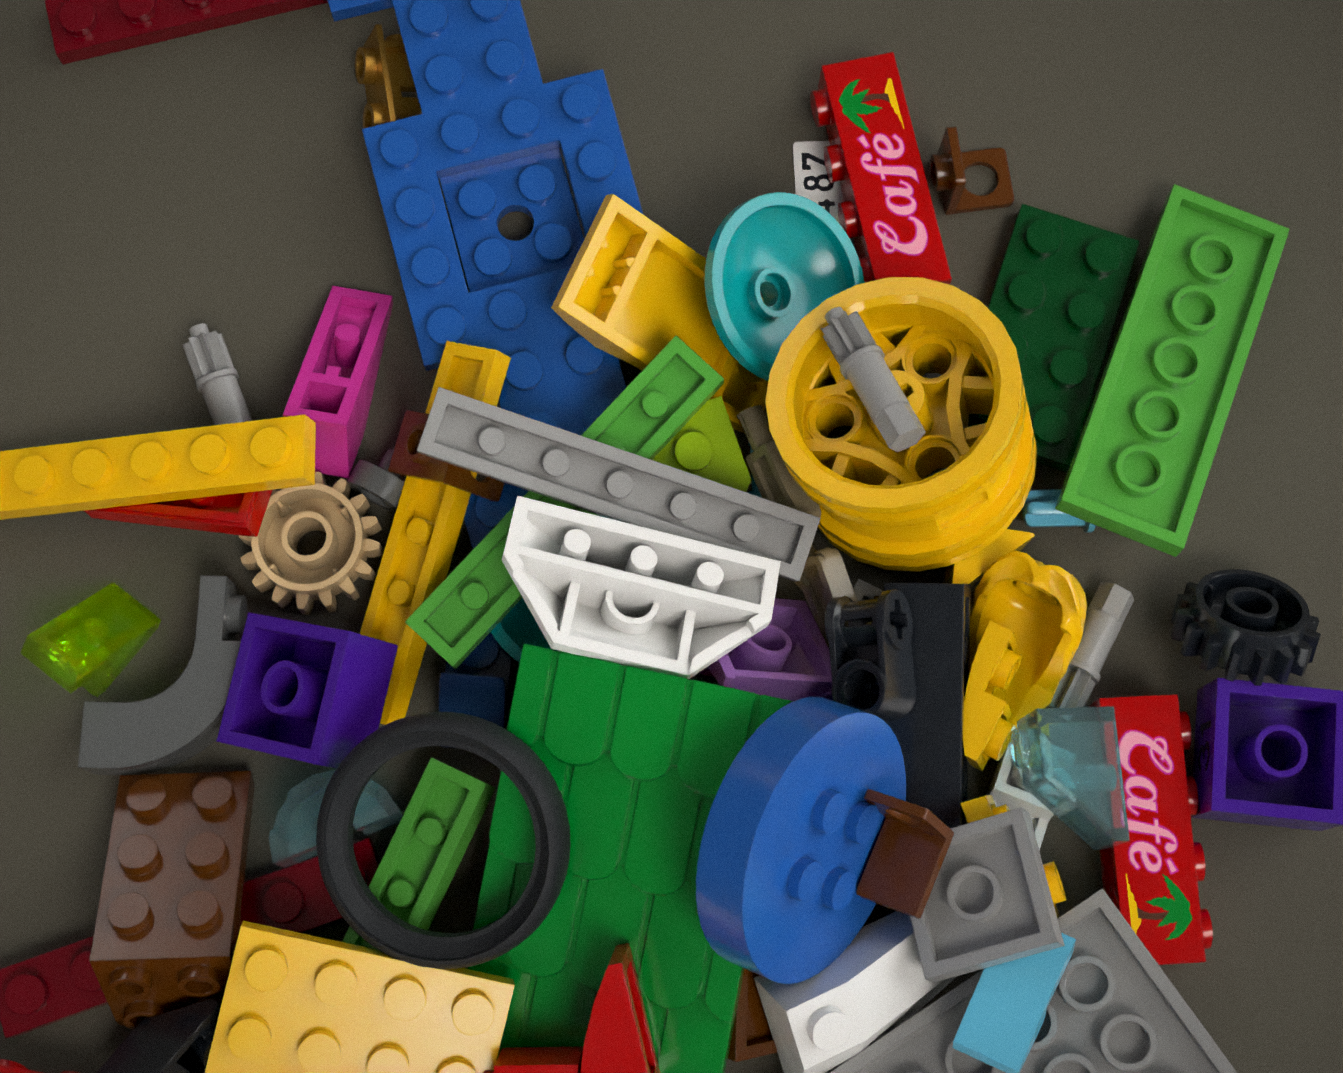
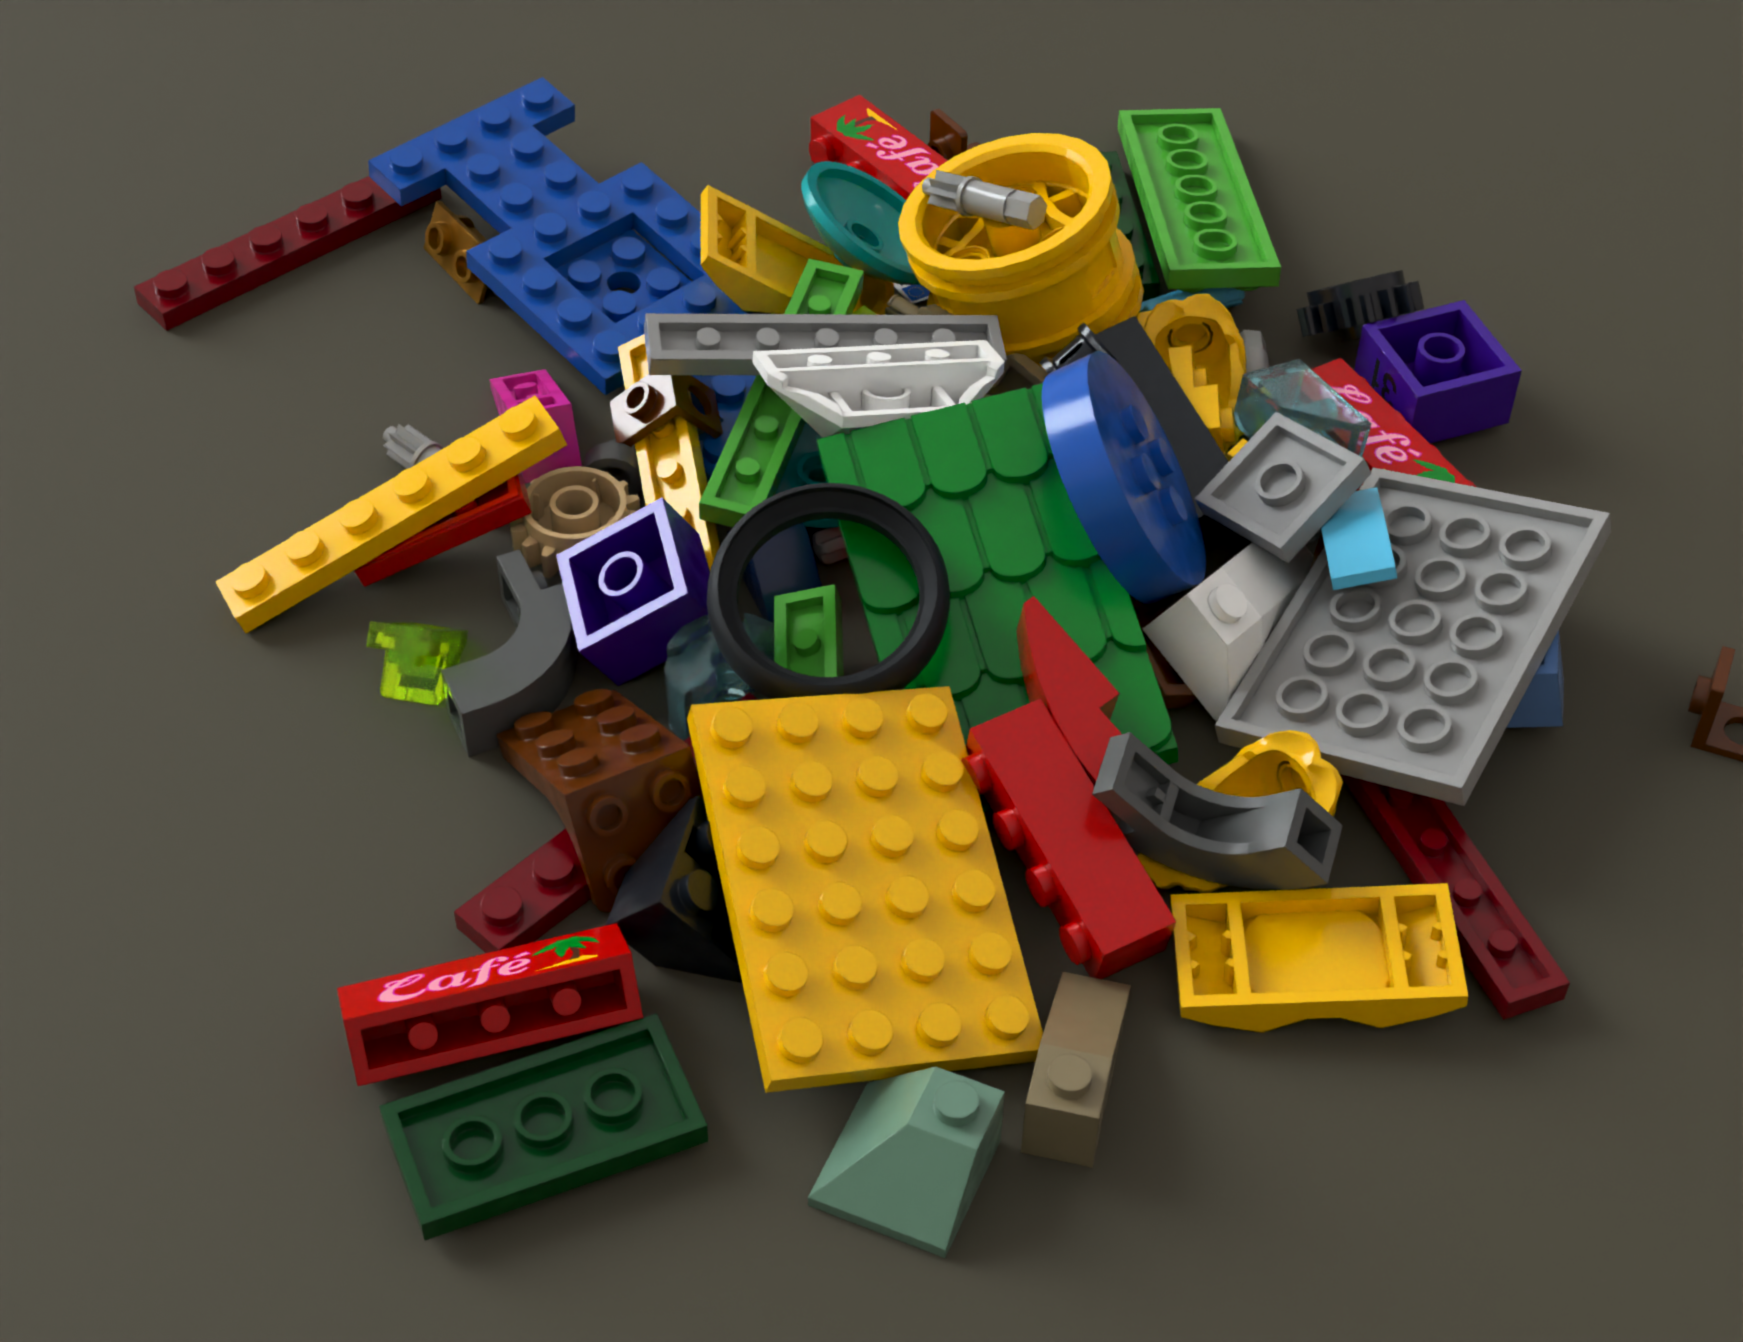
camera: 25 degrees left, 30 degrees down
(904, 855) = (1206, 475): reddish brown bracket -> none

